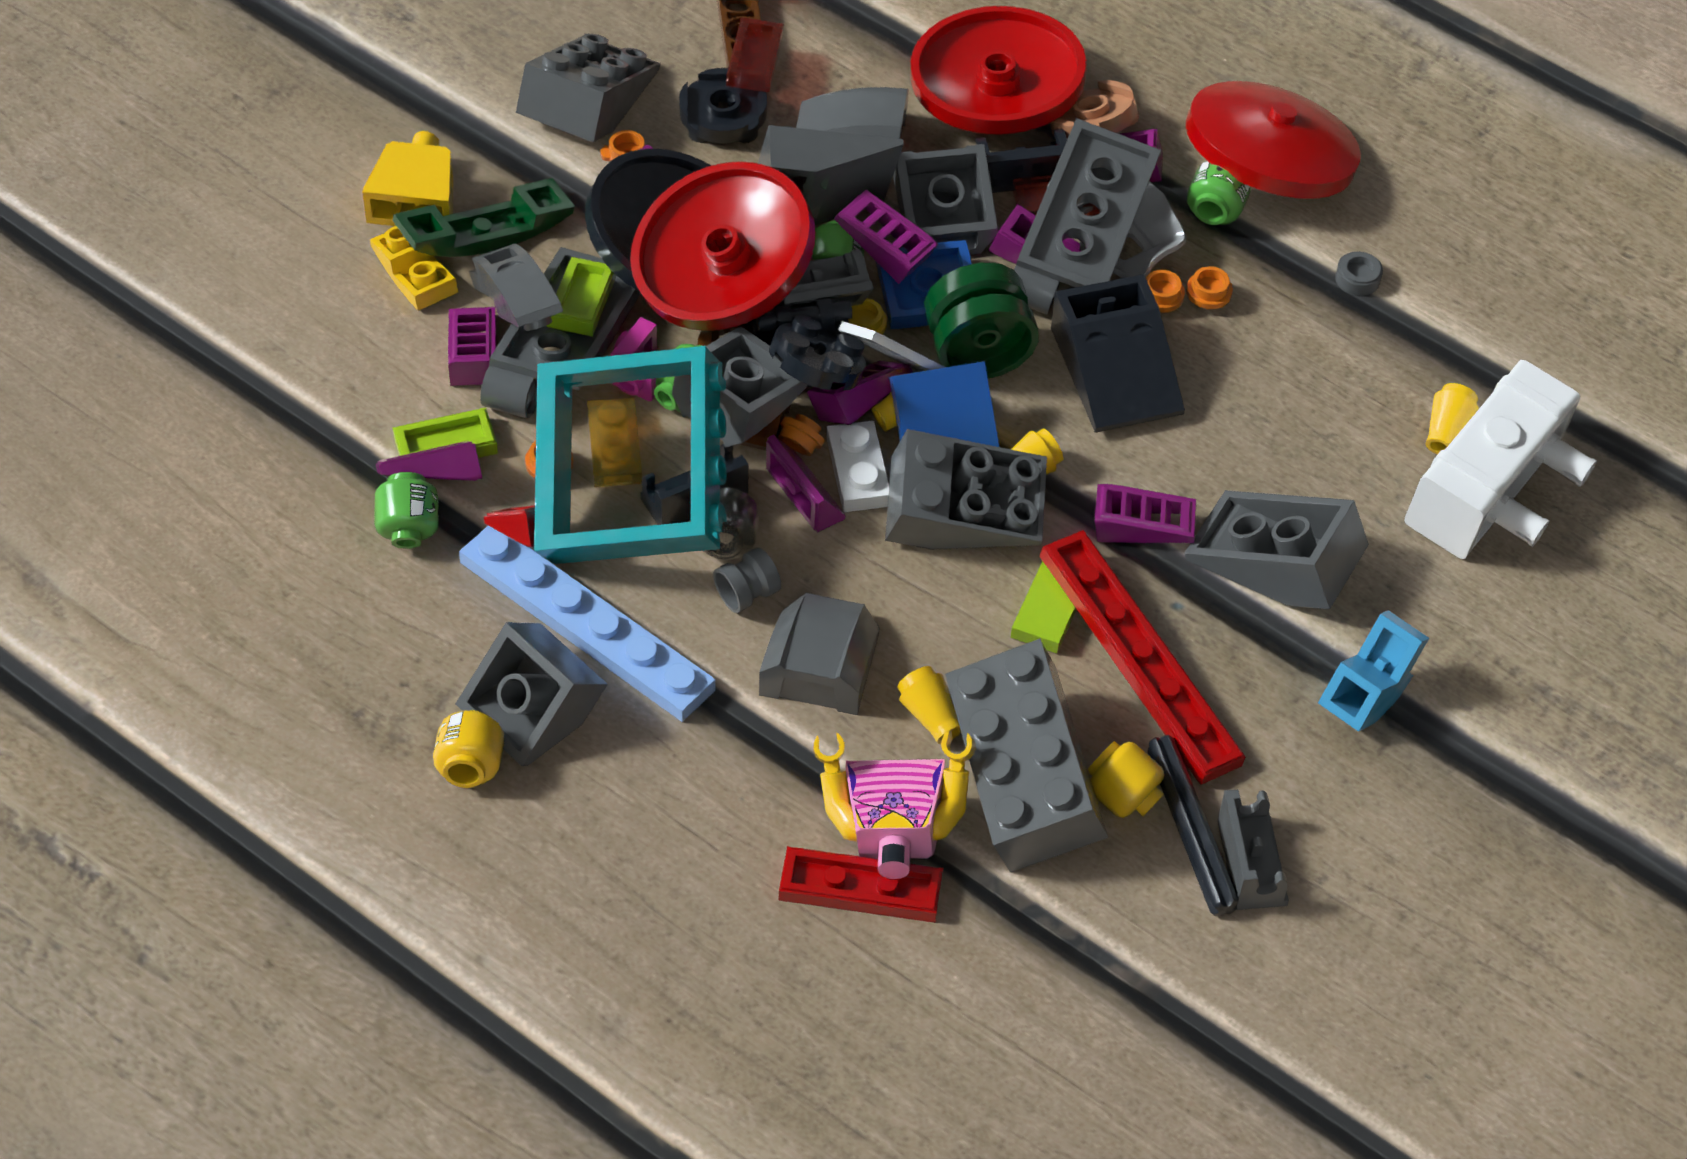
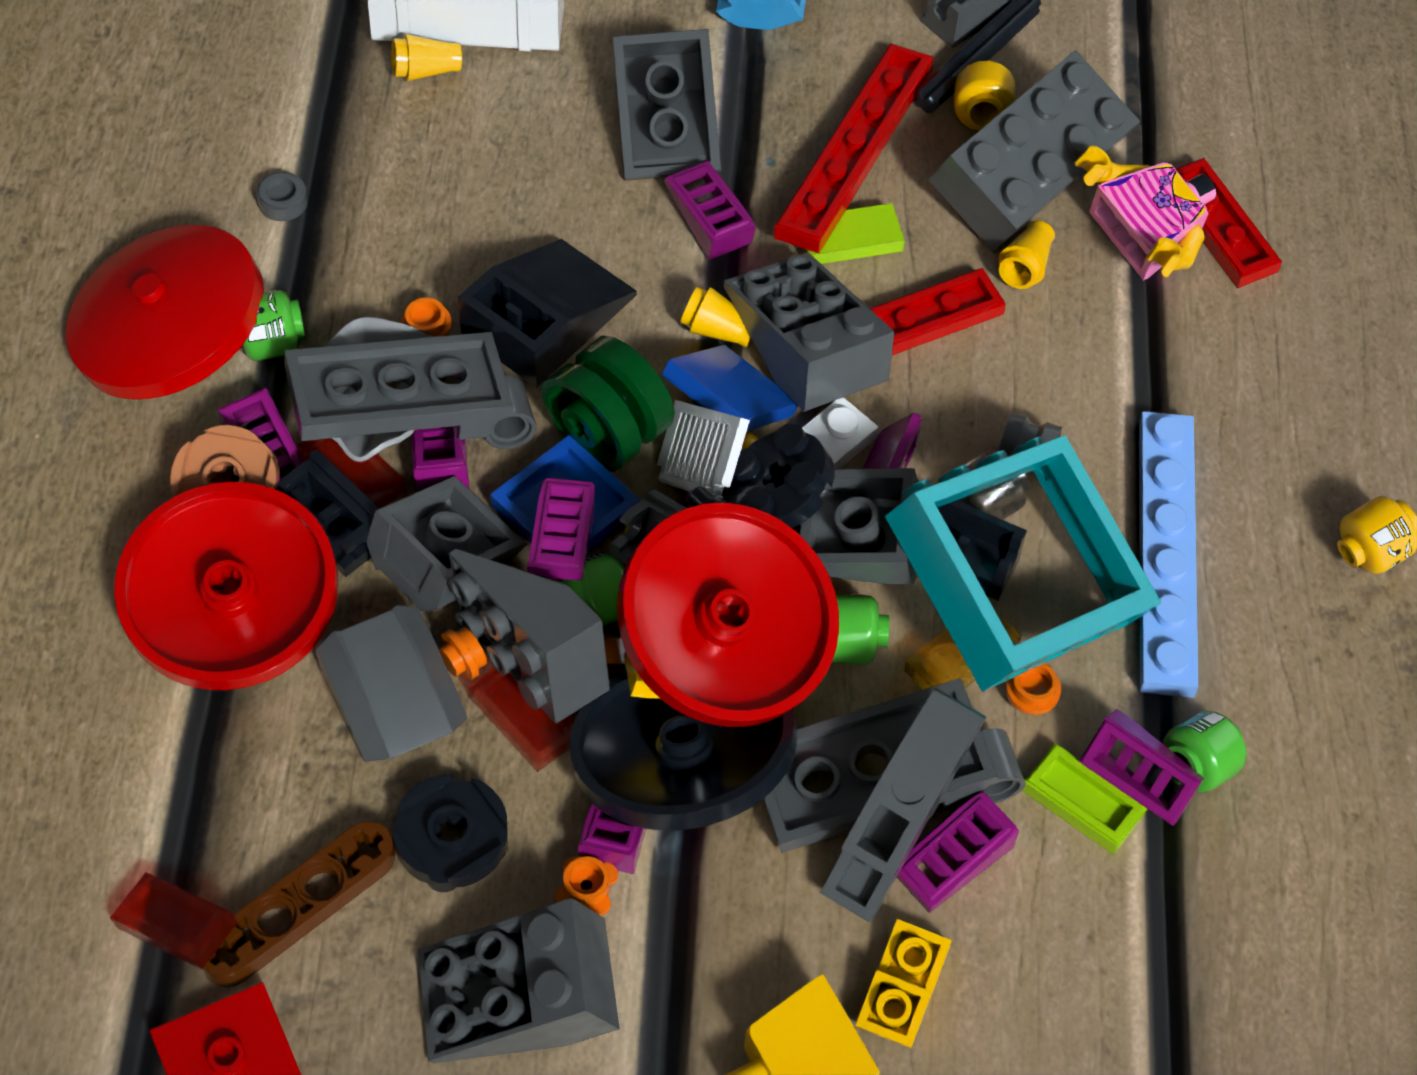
camera: 125 degrees left, 5 degrees up
(488, 228) = (801, 947): dark green slope -> none
(515, 523) = (1127, 657): red slope -> none
(532, 690) = (1281, 528): dark grey slope -> none
(583, 296) = (843, 758): lime tile -> none
(639, 339) = (863, 686): dark pink bracket -> none
(755, 54) = (364, 829): clear red tile -> none
(820, 653) = (1050, 356): dark grey slope -> none
(929, 607) = (941, 309): none -> red tile
(1209, 288) = (392, 289): orange plate -> none

